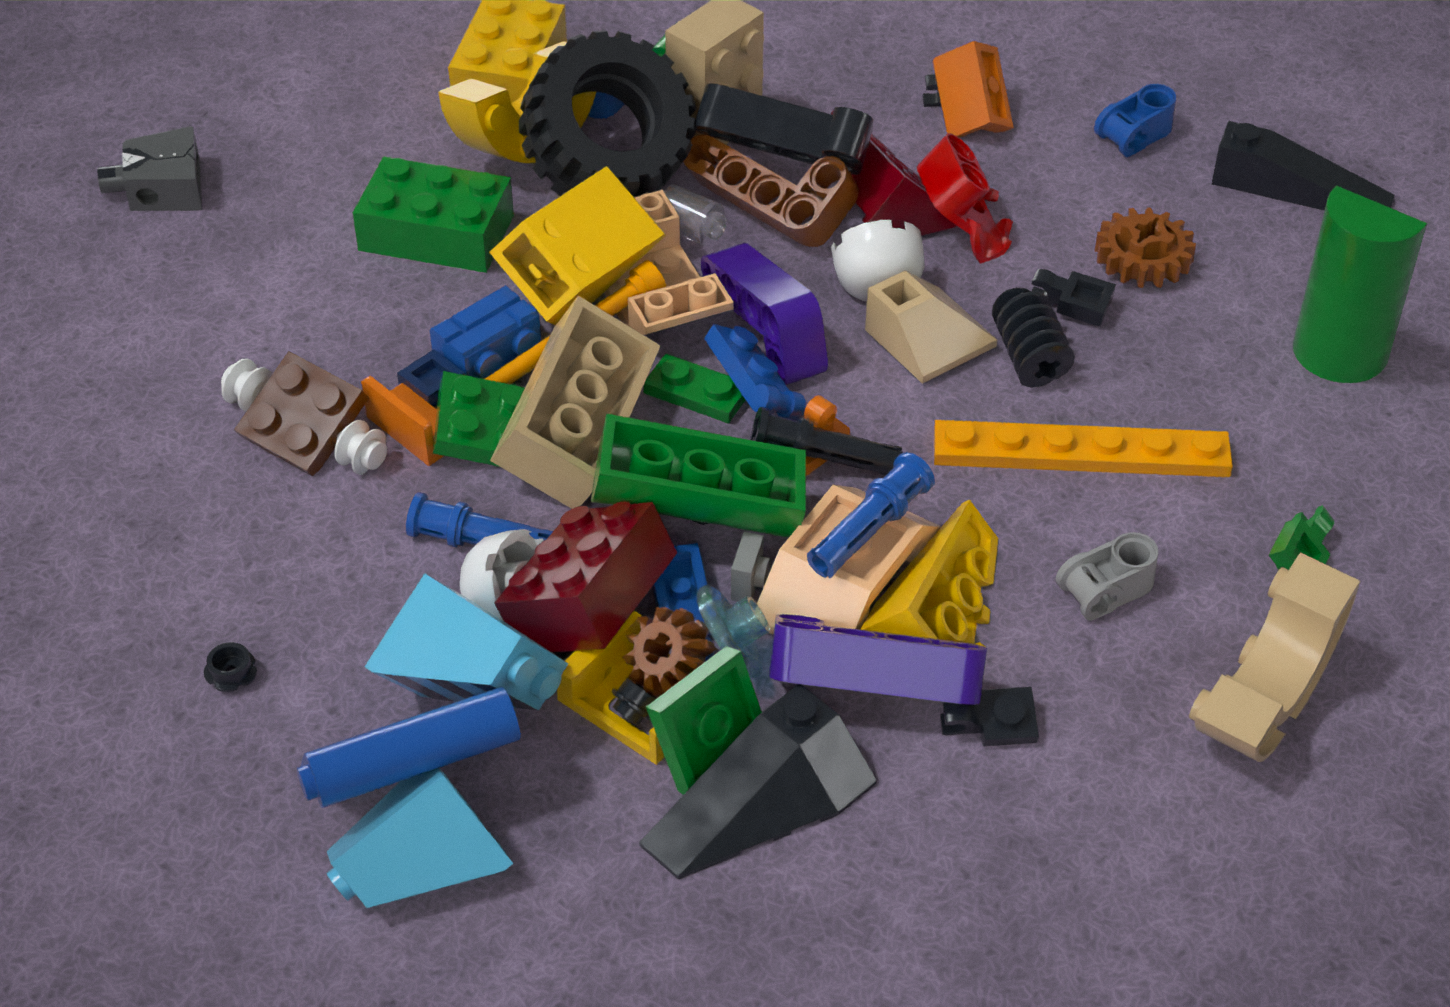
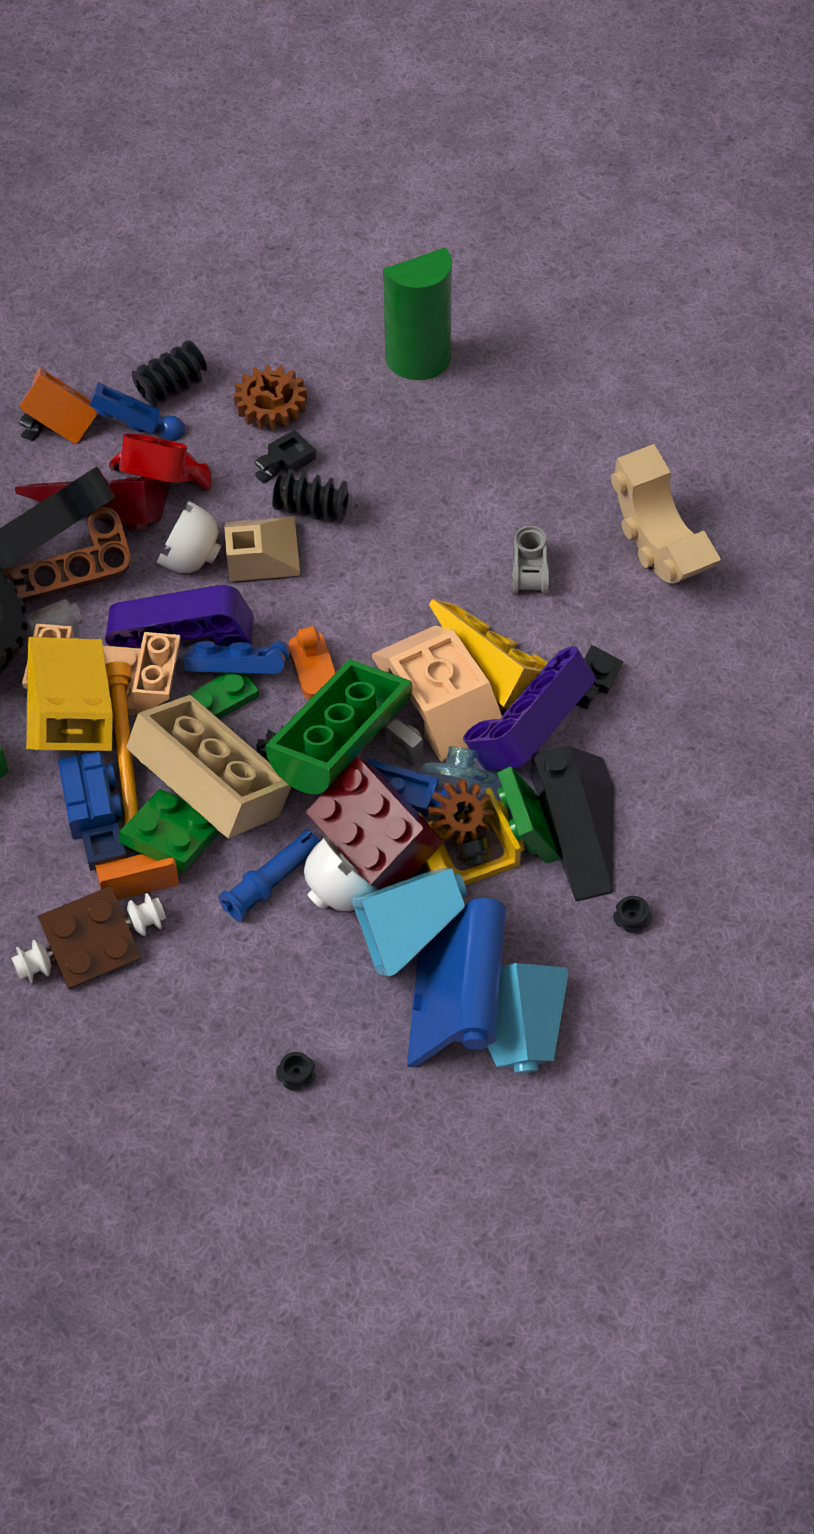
camera: 60 degrees left, 10 degrees up
(651, 897) = (633, 905): none -> black plate
(823, 443) = (322, 659): black pin -> none
(884, 501) = (432, 636): blue pin -> none
(1018, 150) = (135, 413): none -> blue plate
(1082, 448) = (411, 525): light orange plate -> none
(1095, 155) = (169, 371): none -> black piece
(1138, 118) = (149, 330): blue piece -> none
(1280, 169) = (247, 293): black wedge -> none
(1304, 537) = (568, 463): green plate -> none

